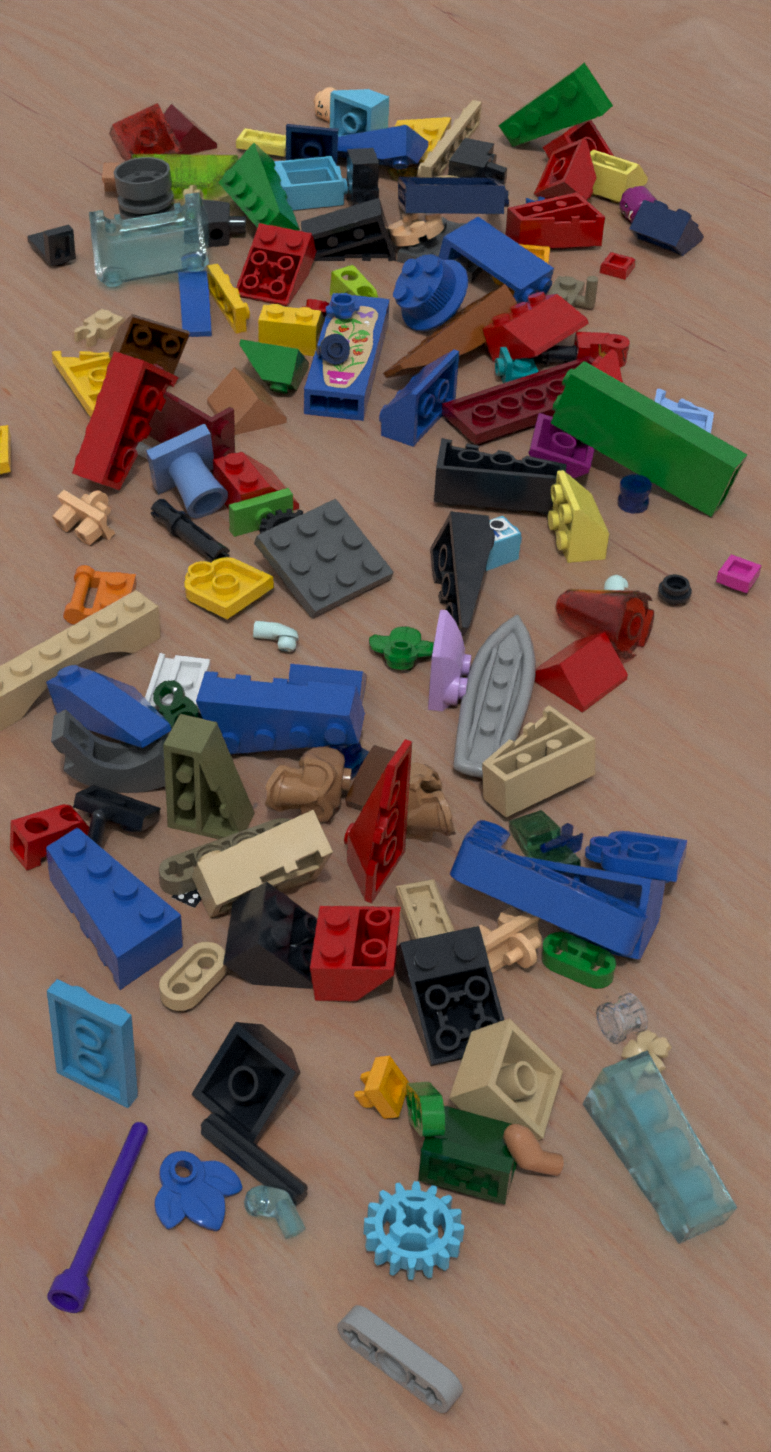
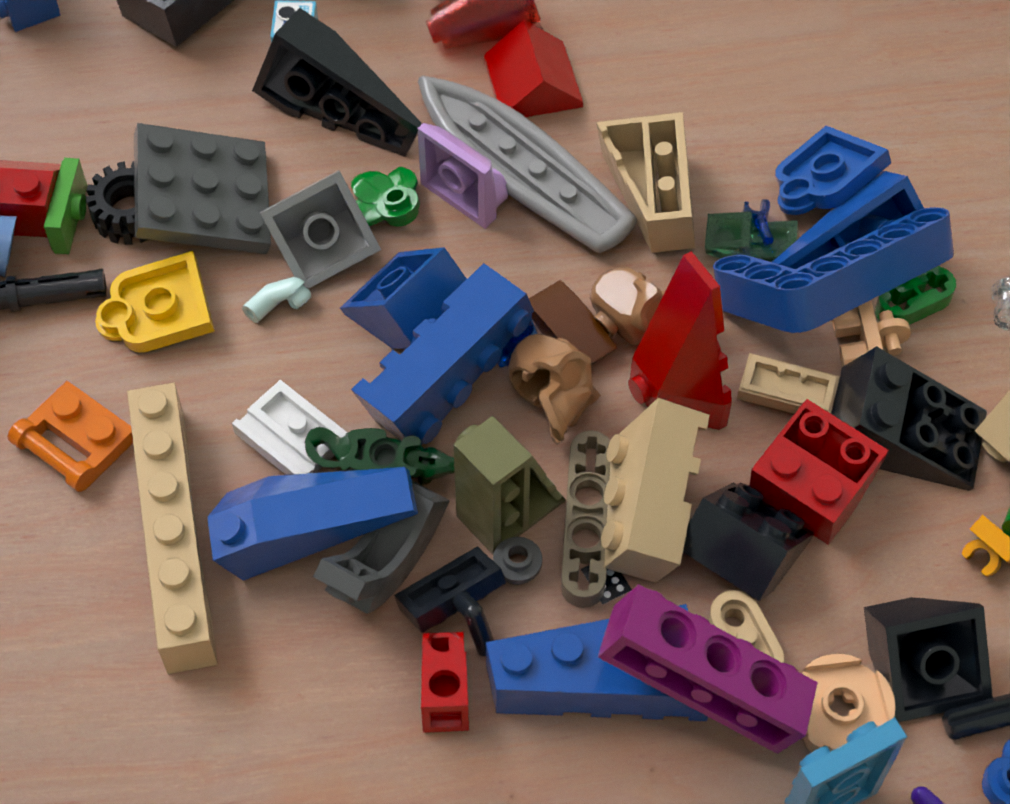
camera: 55 degrees left, 15 degrees up
(128, 869) = (708, 669): none -> magenta brick
(167, 835) = (518, 572): none -> dark grey plate
(173, 1072) = (857, 685): none -> light nougat plate
(339, 621) = (320, 230): none -> light grey slope

